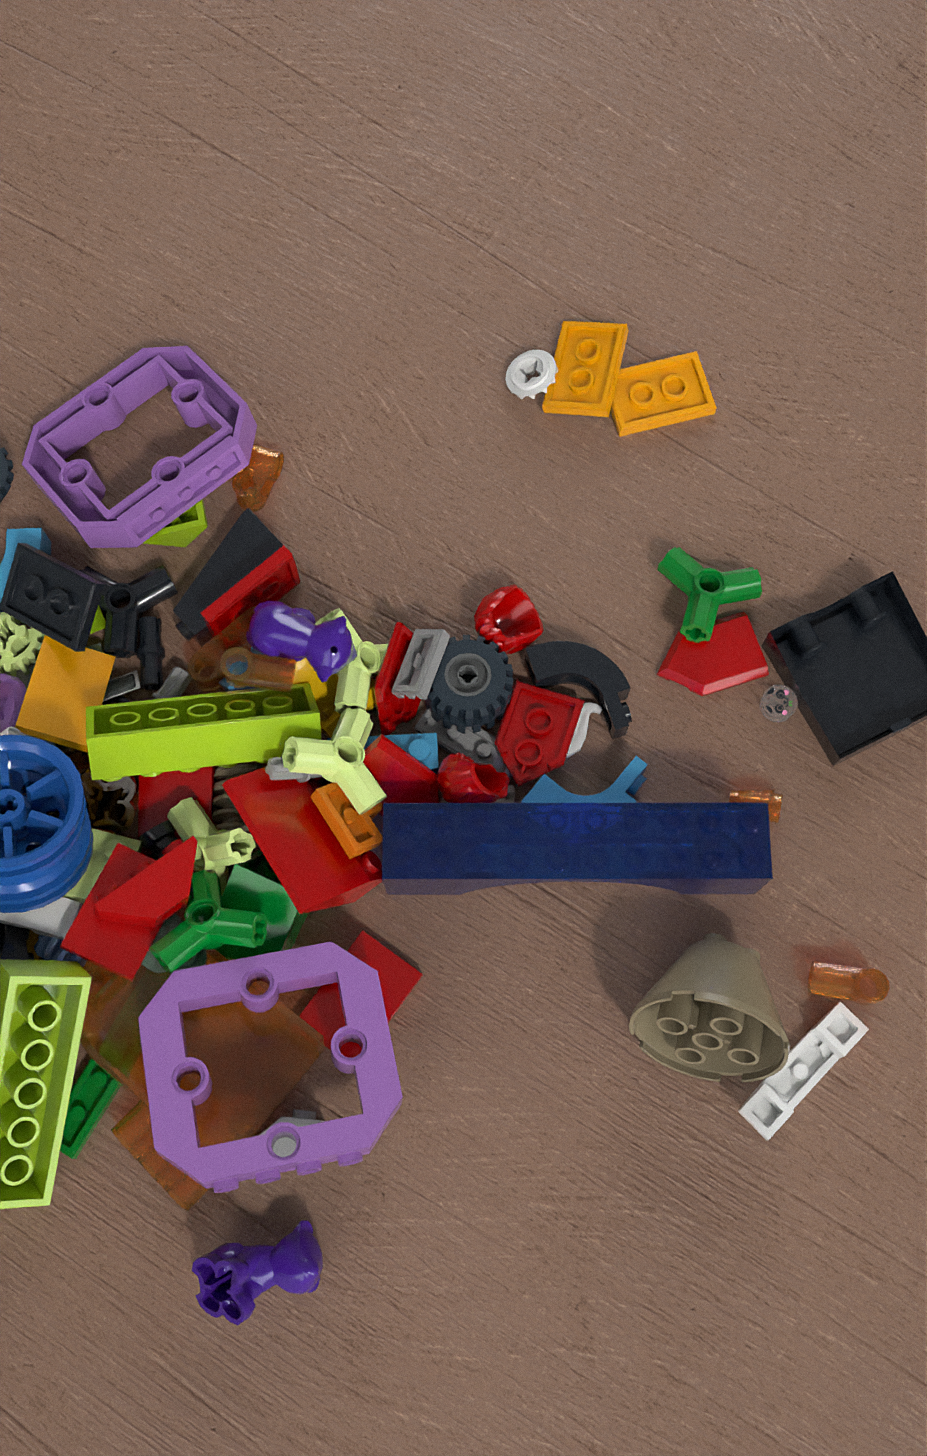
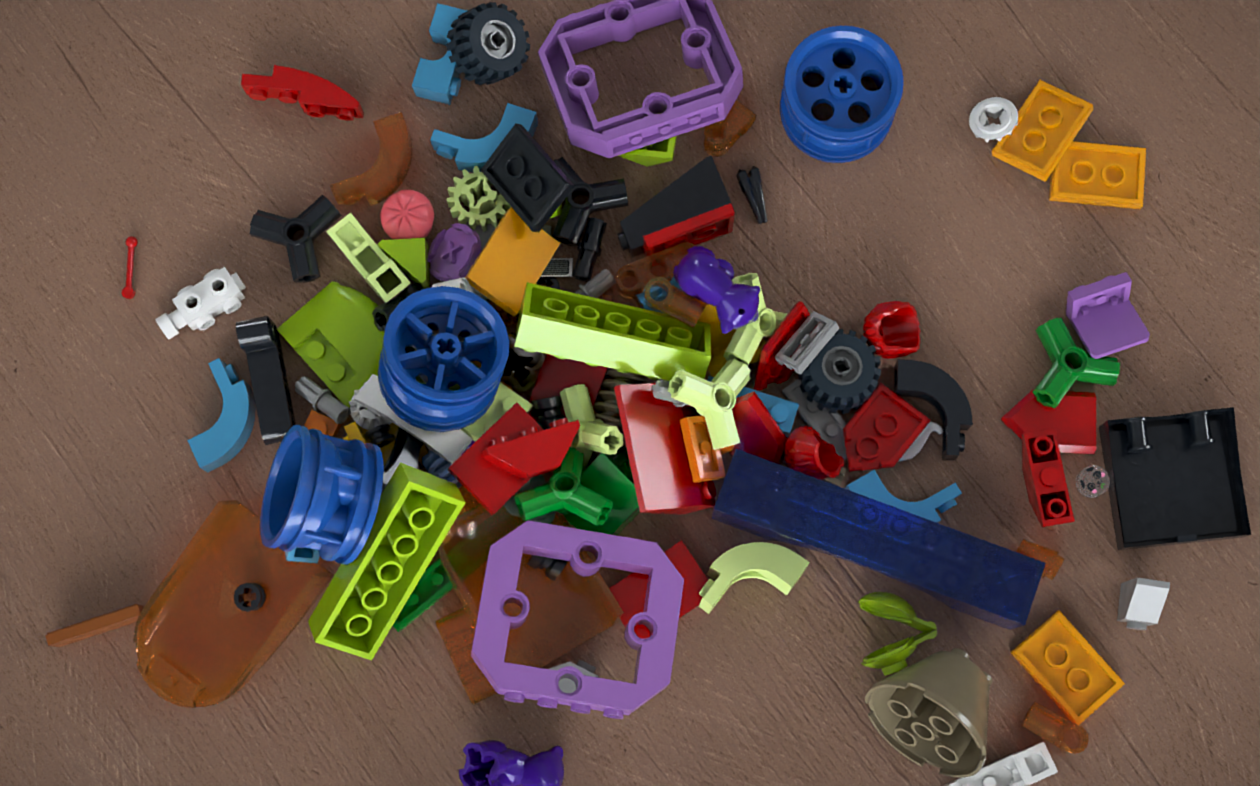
camera: 25 degrees right, 5 degrees up
(224, 1013) = (552, 566): none -> black wheel
(307, 531) = (753, 191): none -> black piece
(351, 358) = (839, 137): none -> blue wheel
(451, 921) = (752, 560): none -> yellowish green arch
(625, 916) = (892, 607): none -> lime animal
(723, 529) = (1106, 316): none -> medium lavender bracket
(729, 716) = (1045, 478): none -> red slope
(832, 911) = (1067, 668): none -> light orange tile
(882, 809) = (1141, 602): none -> slope

